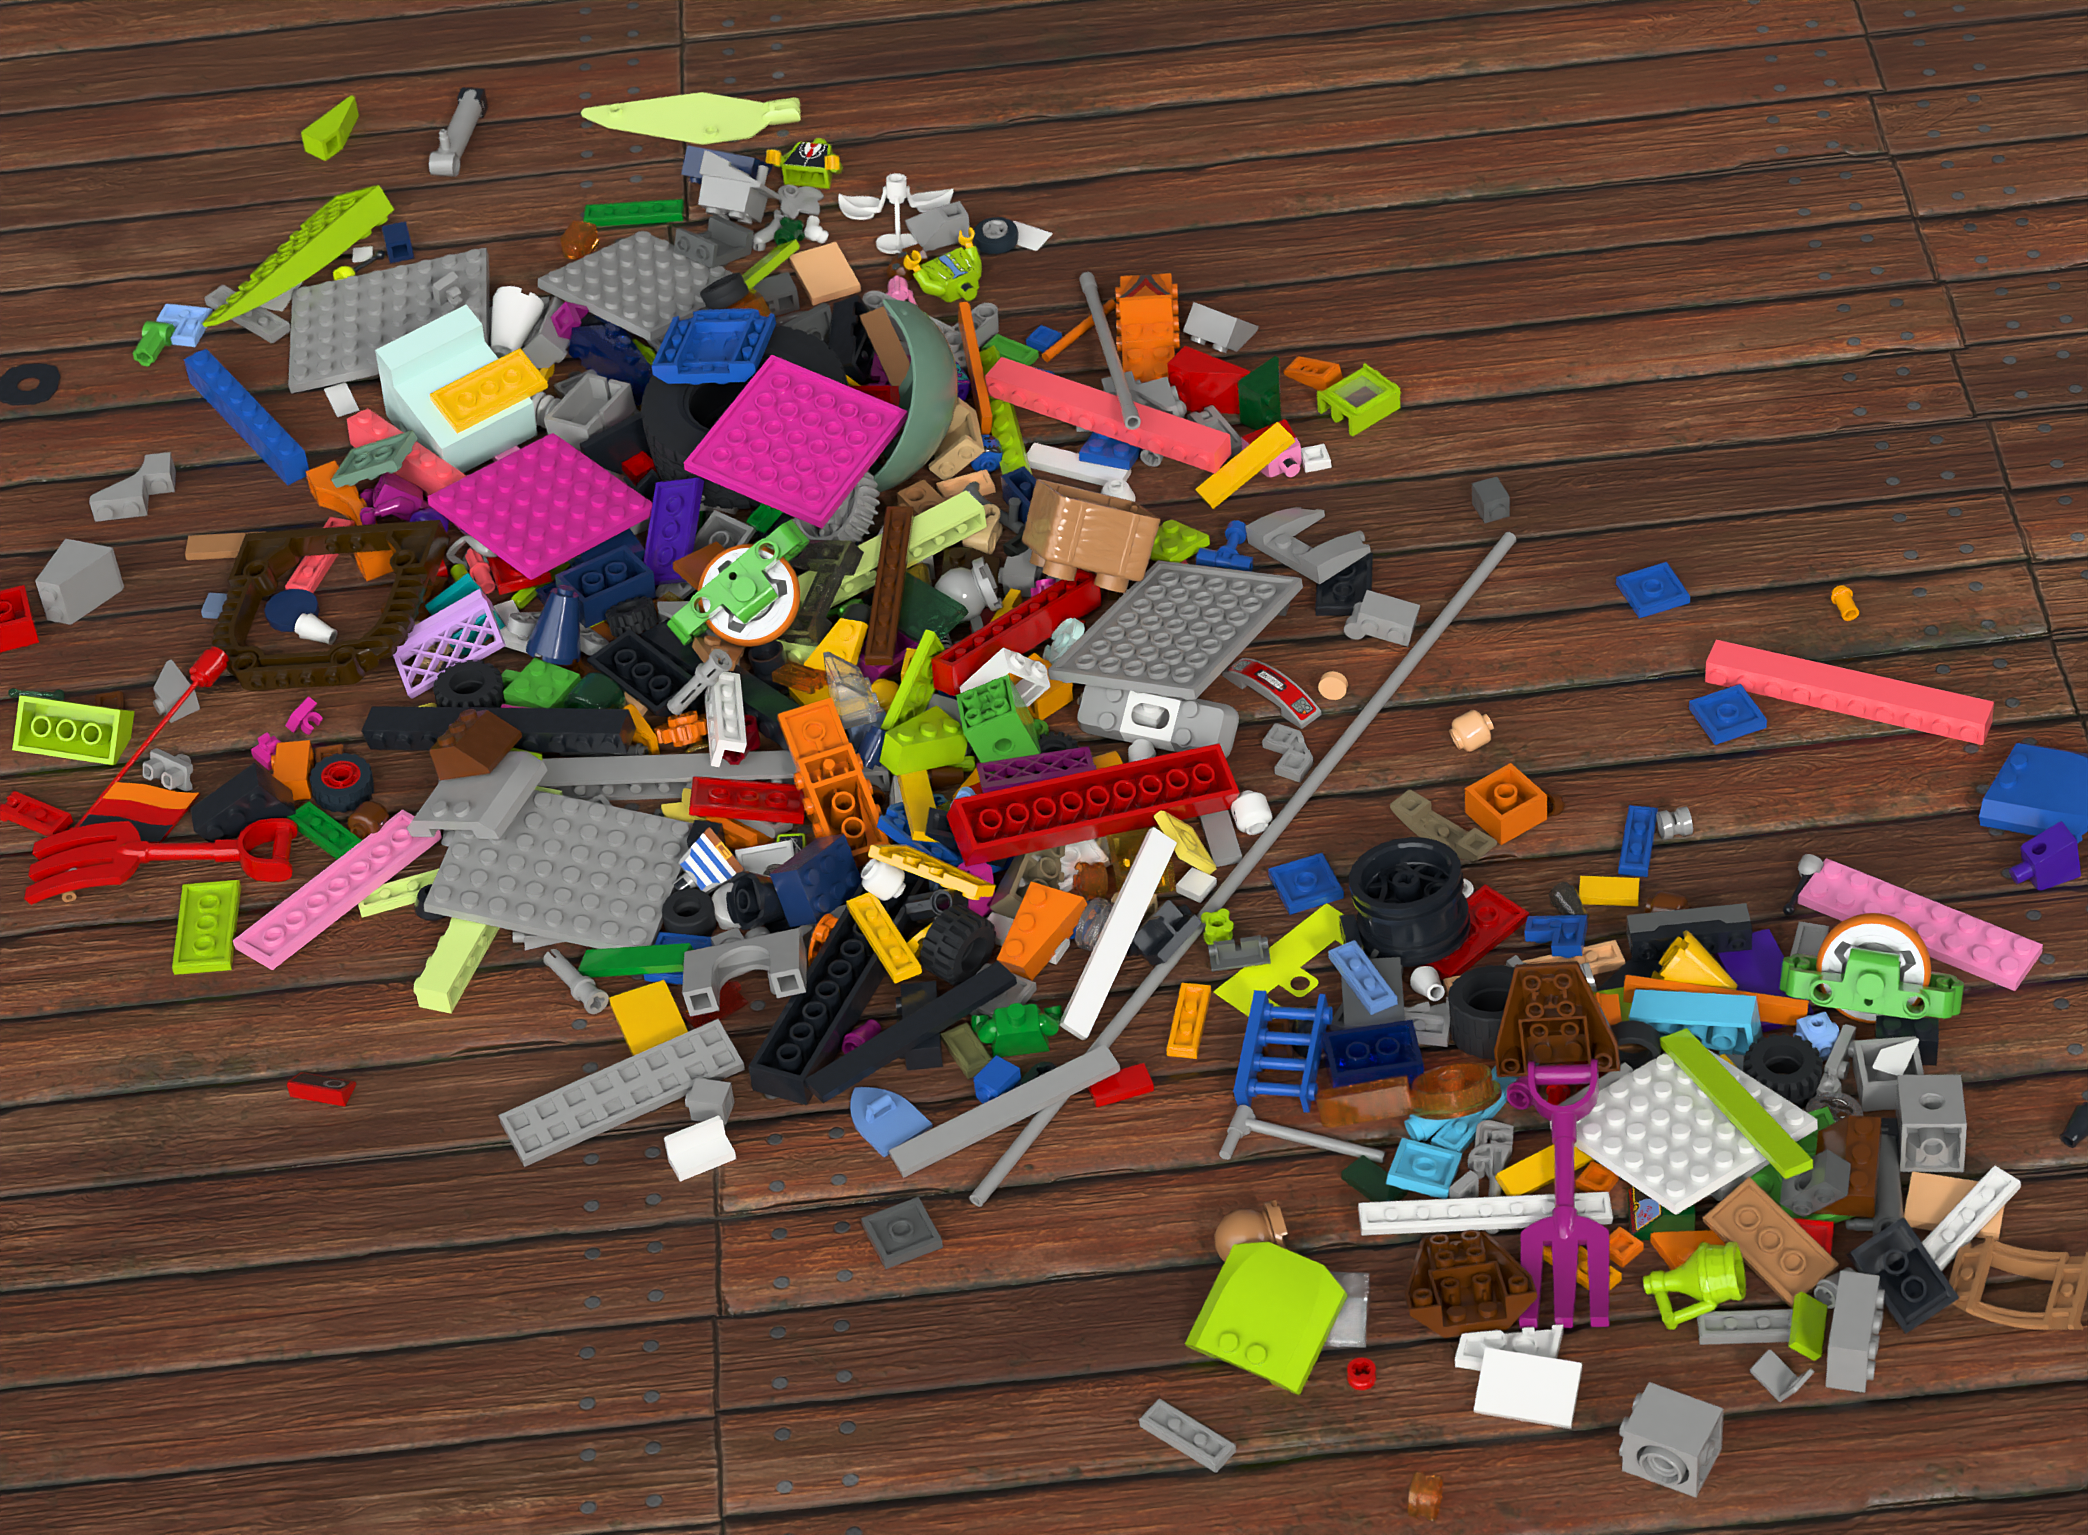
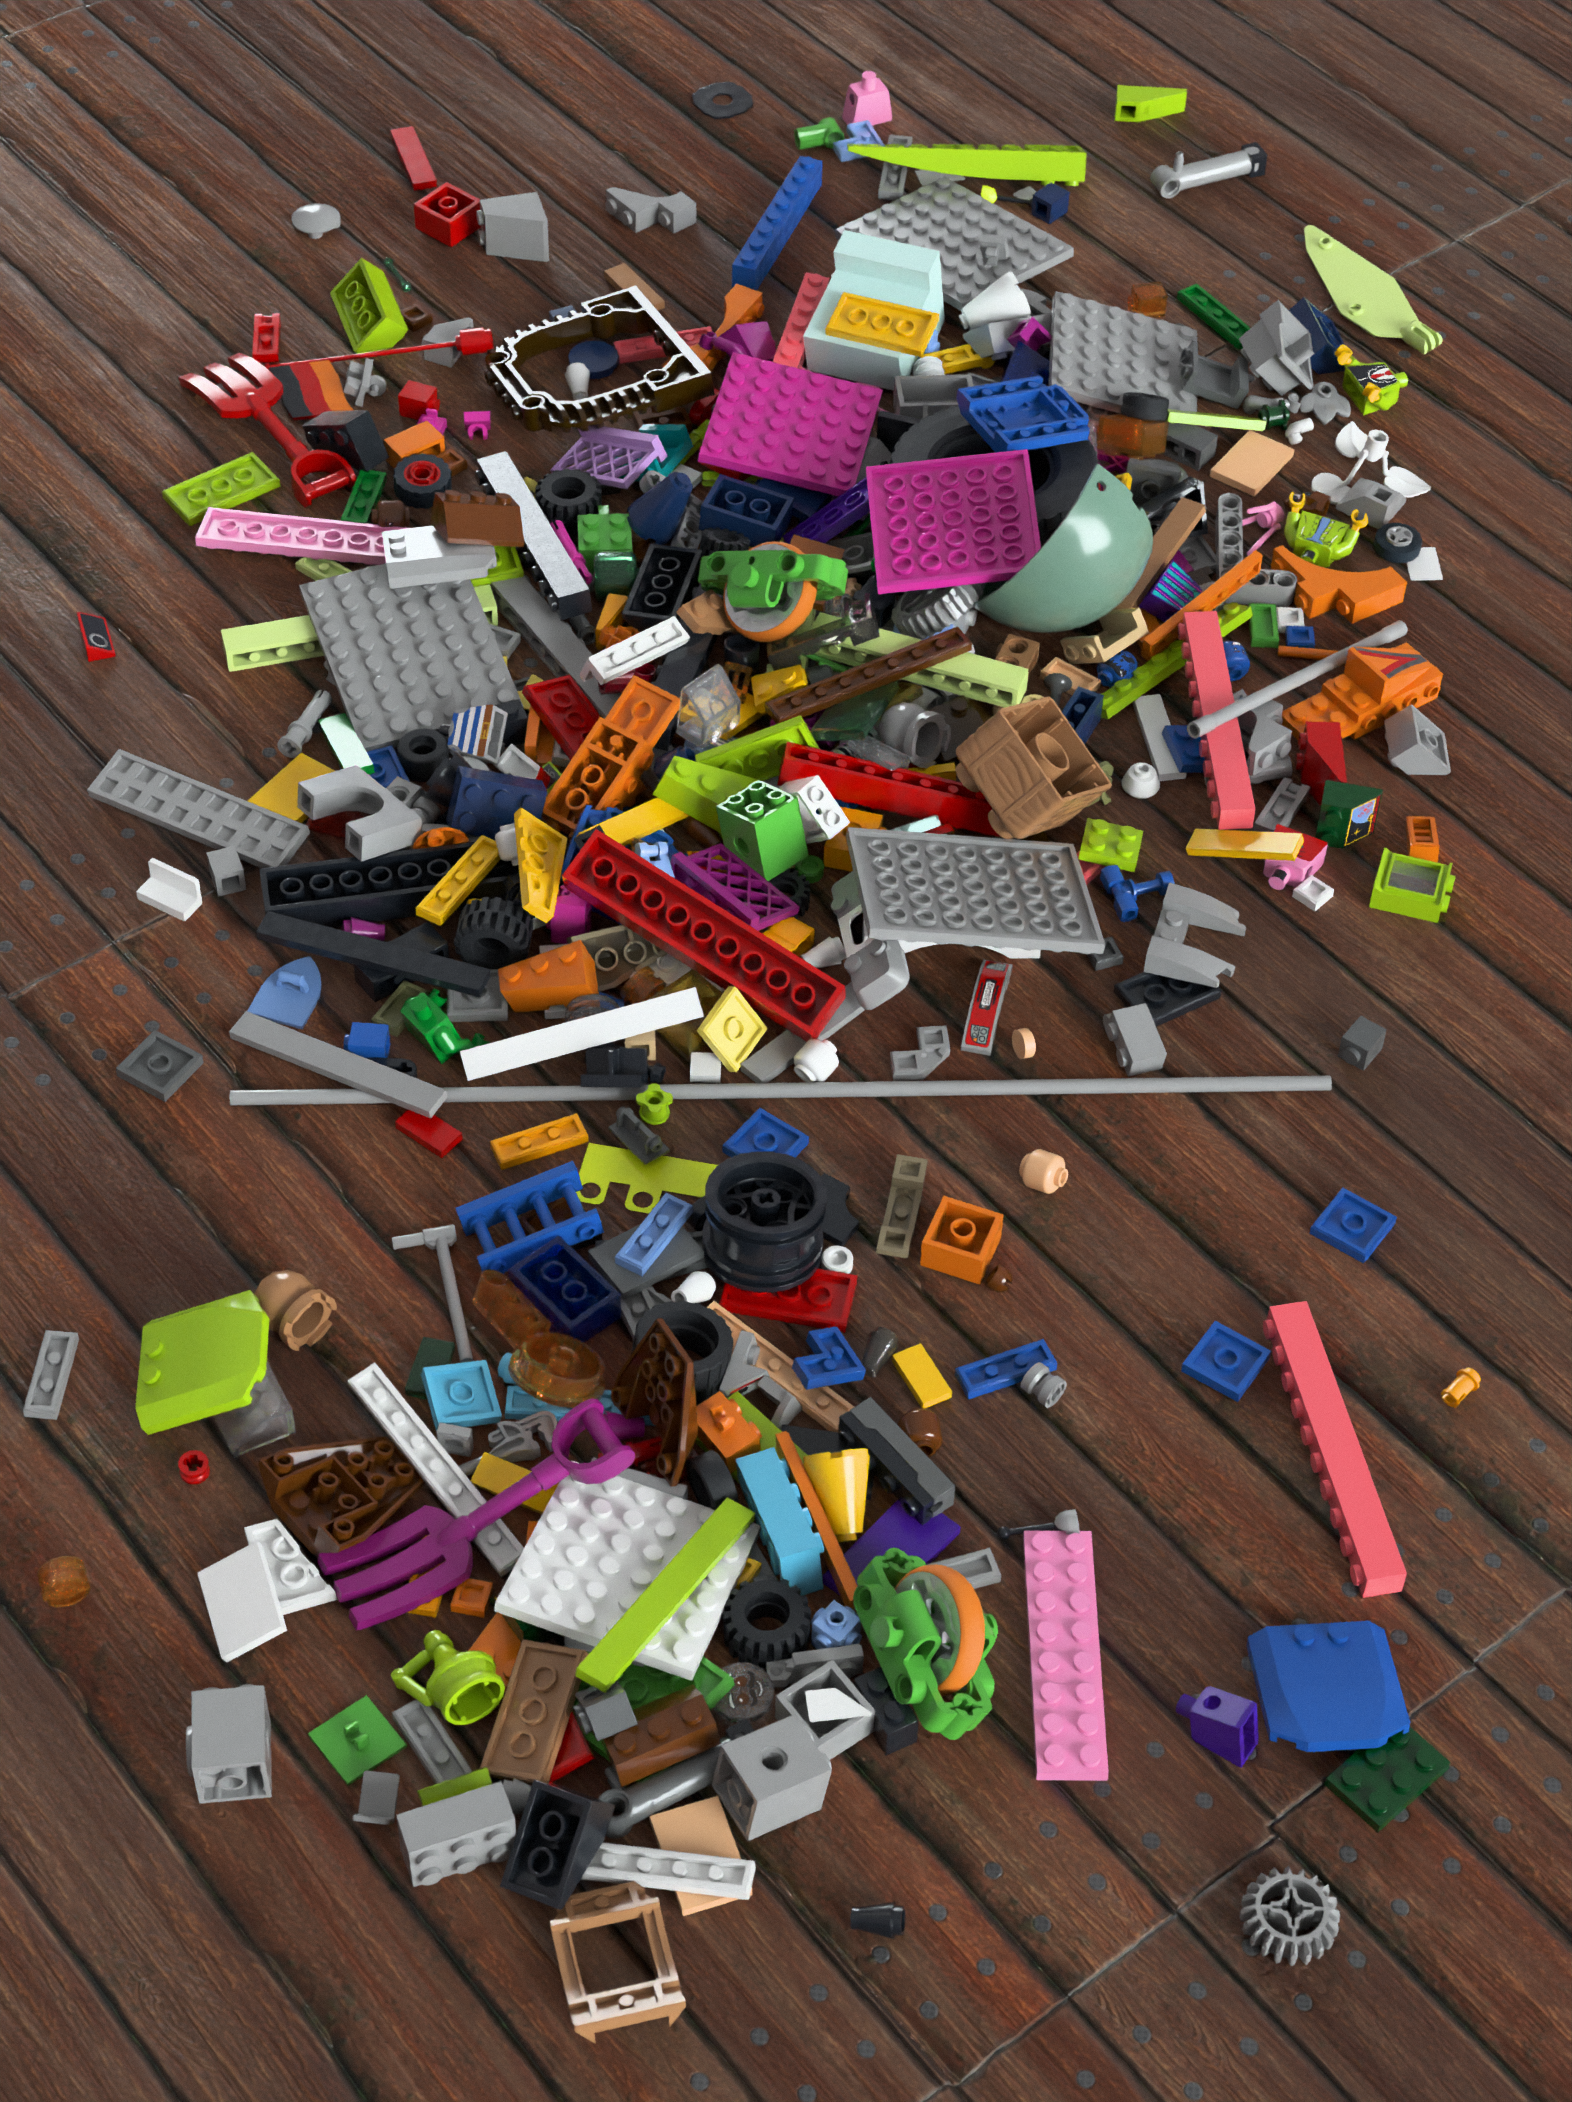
camera: 50 degrees right, 5 degrees up
(150, 290) = (867, 101): none -> bright pink torso
(233, 743) = (416, 398): none -> red brick
(374, 459) = (766, 308): sand green plate -> none
(705, 675) = (654, 613): light grey pin -> none
(977, 619) = (878, 752): none -> clear panel
(1018, 332) = (1289, 617): none -> white tile
(1026, 286) = (1351, 593): none -> orange arch
(1706, 1372) = (357, 1740): none -> bright green piece

